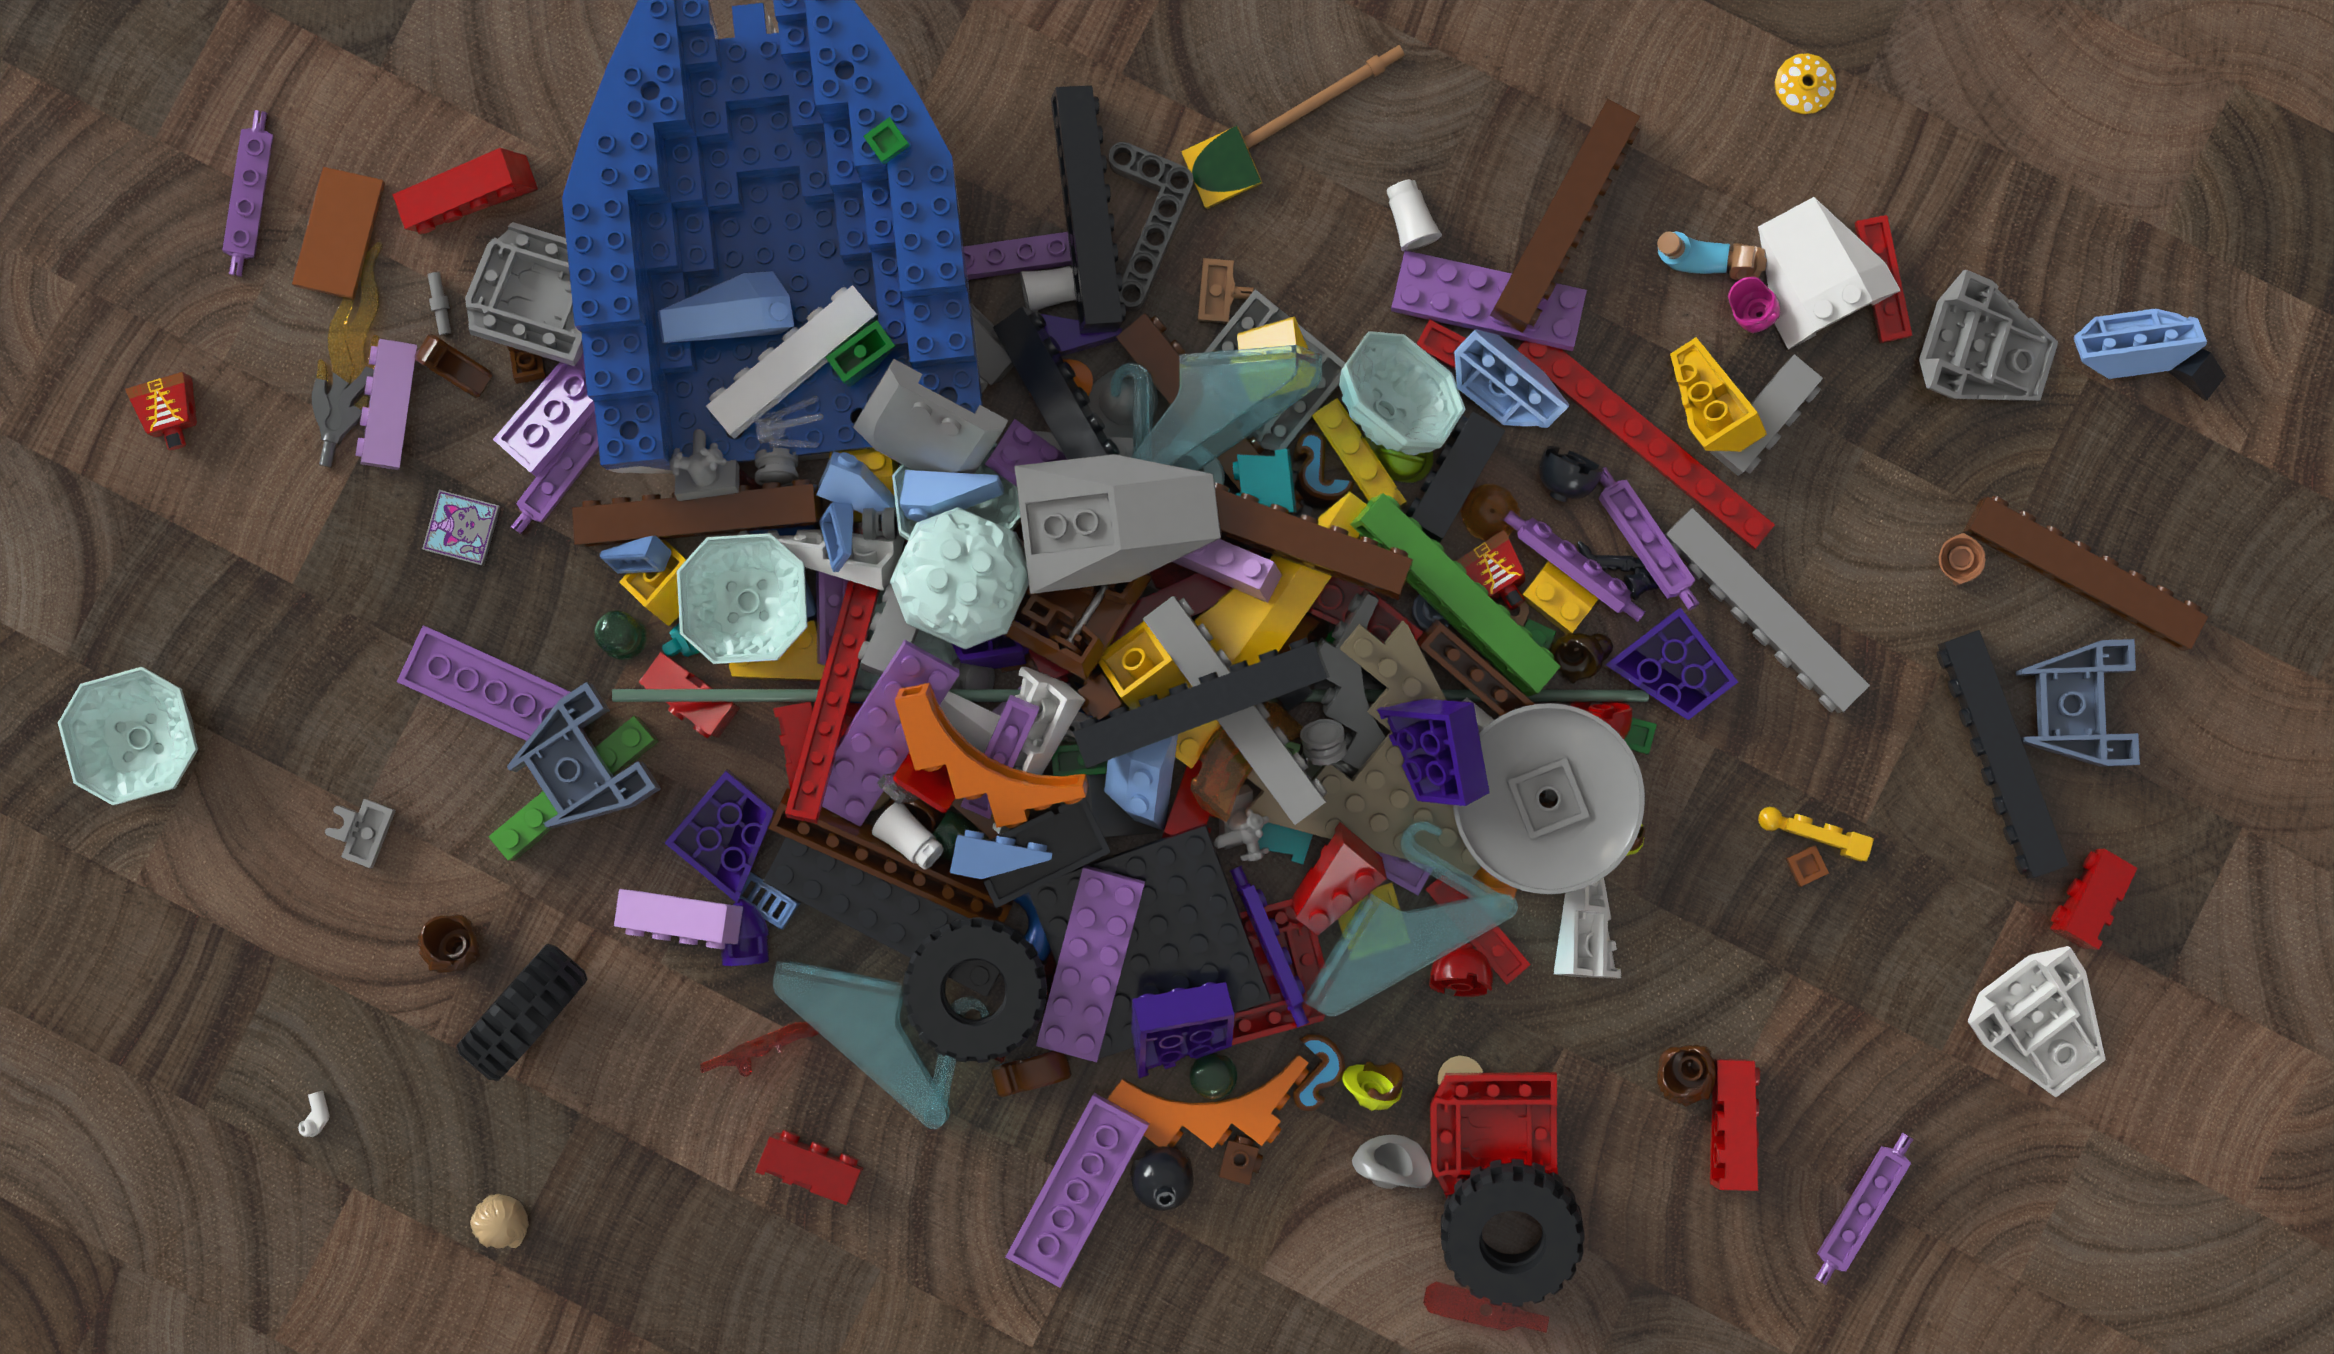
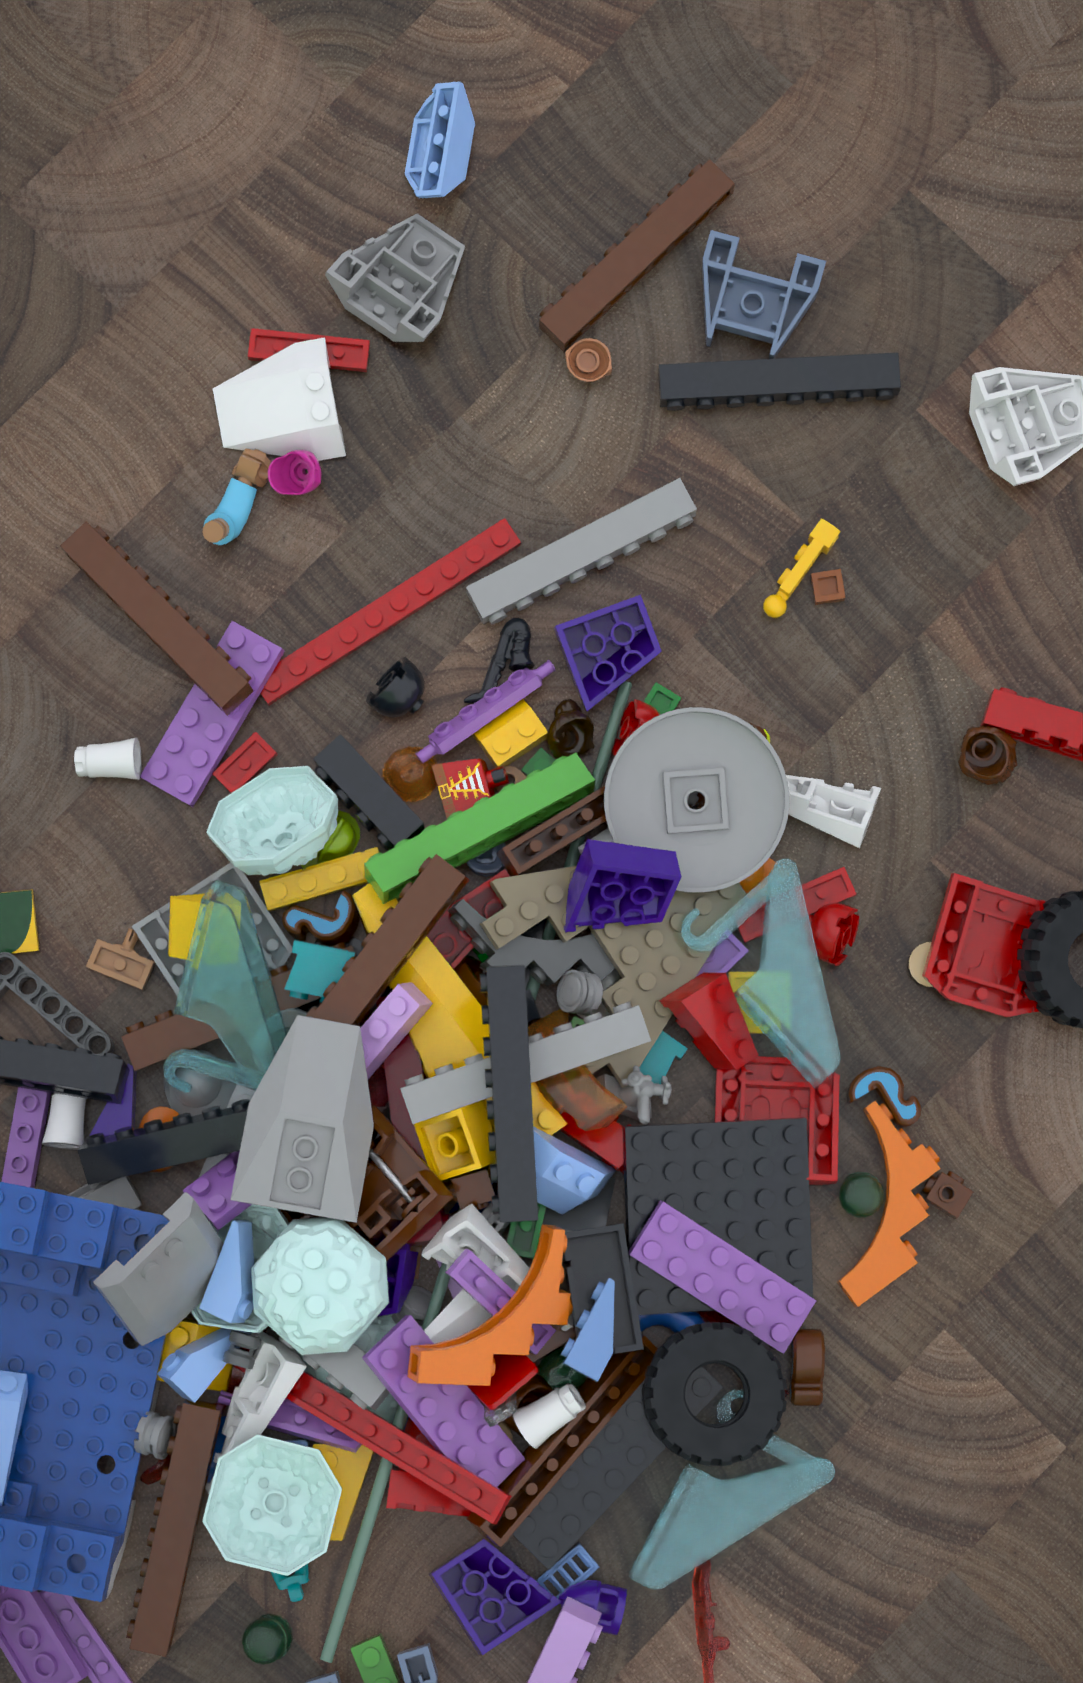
camera: 75 degrees left, 5 degrees down
(638, 556) = (197, 1596): medium blue slope -> none
(658, 589) = (226, 1585): yellow slope -> none
(703, 472) = (138, 1504): light grey piece -> none
(708, 717) = (322, 1601): red wedge -> none
(773, 427) = (116, 1426): clear plant -> none
(791, 362) = (59, 1386): white brick -> none
(810, 1166) = (835, 1607): red wedge -> none
(837, 533) = (239, 1393): medium blue slope -> none
(861, 354) = (74, 1316): green slope -> none
(1077, 1190) = (931, 1356): medium lavender plate -> none
(1162, 1178) = (943, 1272): black cylinder -> none
(1181, 1025) = (805, 1208): dark purple wedge -> none
(1277, 957) = (767, 1099): dark purple plate -> none
(1374, 1085) = (914, 1045): neon yellow piece -> none
(1393, 1162) = (991, 1050): light grey hat -> none
(1506, 382) = (295, 720): light blue wedge -> none
(1647, 539) = (482, 637): medium lavender plate -> none
(1713, 404) = (376, 537): yellow wedge -> none
(1776, 406) = (401, 493): light grey brick -> none
(1795, 94) = (104, 377): yellow dish -> none
(2093, 899) = (935, 340): red wedge -> none
(2200, 373) = (486, 98): black slope -> none

